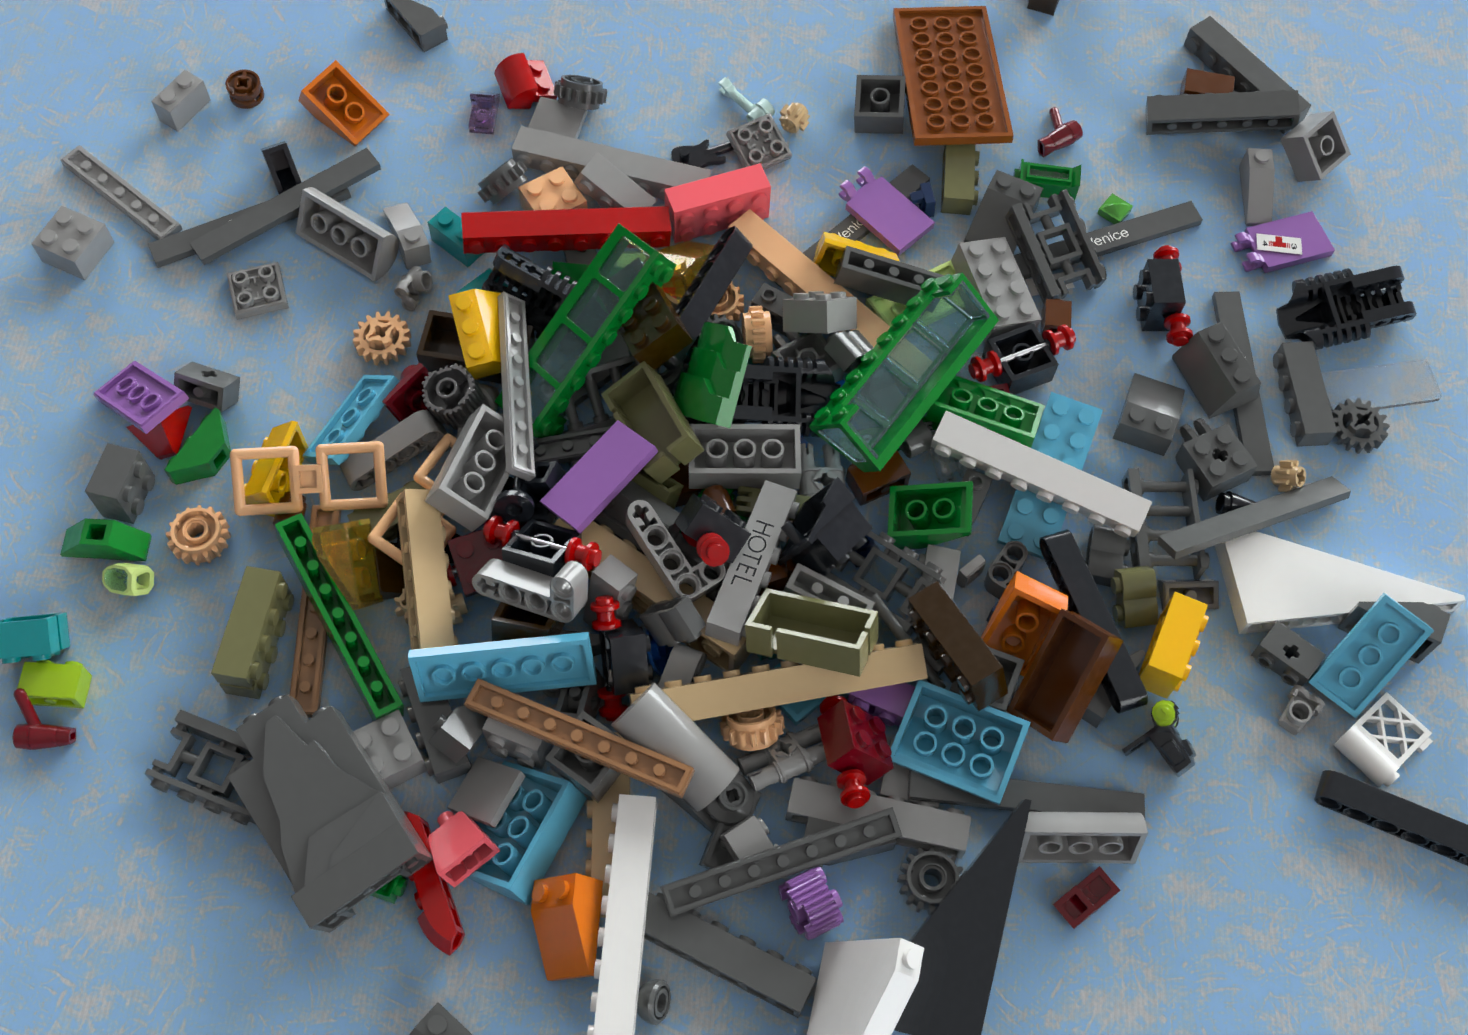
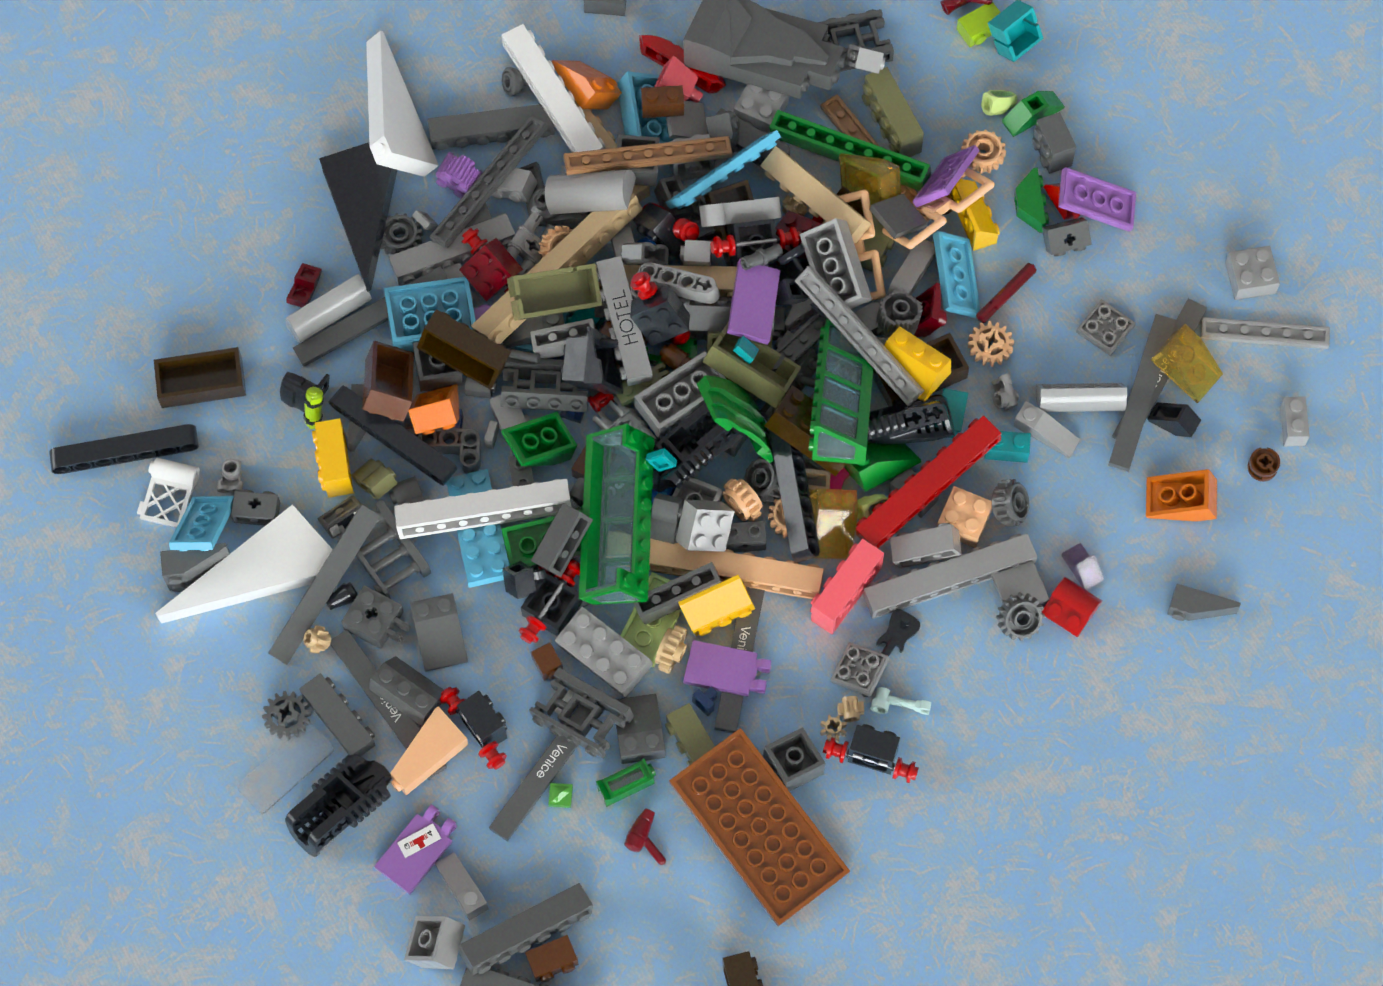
camera: 150 degrees right, 5 degrees up
(220, 202) = (1188, 363): none -> clear yellow slope
(227, 692) = (865, 58): none -> light grey brick
(251, 516) = (946, 176): none -> medium lavender tile
(319, 377) = (1006, 293): none -> dark red axle
(360, 491) = (898, 216): none -> dark grey tile
(502, 808) = (662, 101): none -> reddish brown brick
(551, 514) = (761, 257): none -> dark grey pin
(651, 422) = (745, 349): none -> teal tile
(806, 69) = (874, 751): none -> black brick
(822, 114) = (836, 723): none -> tan gear
(822, 385) = (661, 460): none -> teal tile
(888, 878) = (425, 220): none -> light grey tile
(929, 247) = (671, 649): none -> tan gear
(980, 382) = (561, 540): none -> dark grey brick
(1043, 378) = (521, 578): none -> black brick
(1232, 299) = (430, 750): none -> light nougat slope
(1286, 848) = (199, 377): none -> dark brown piece

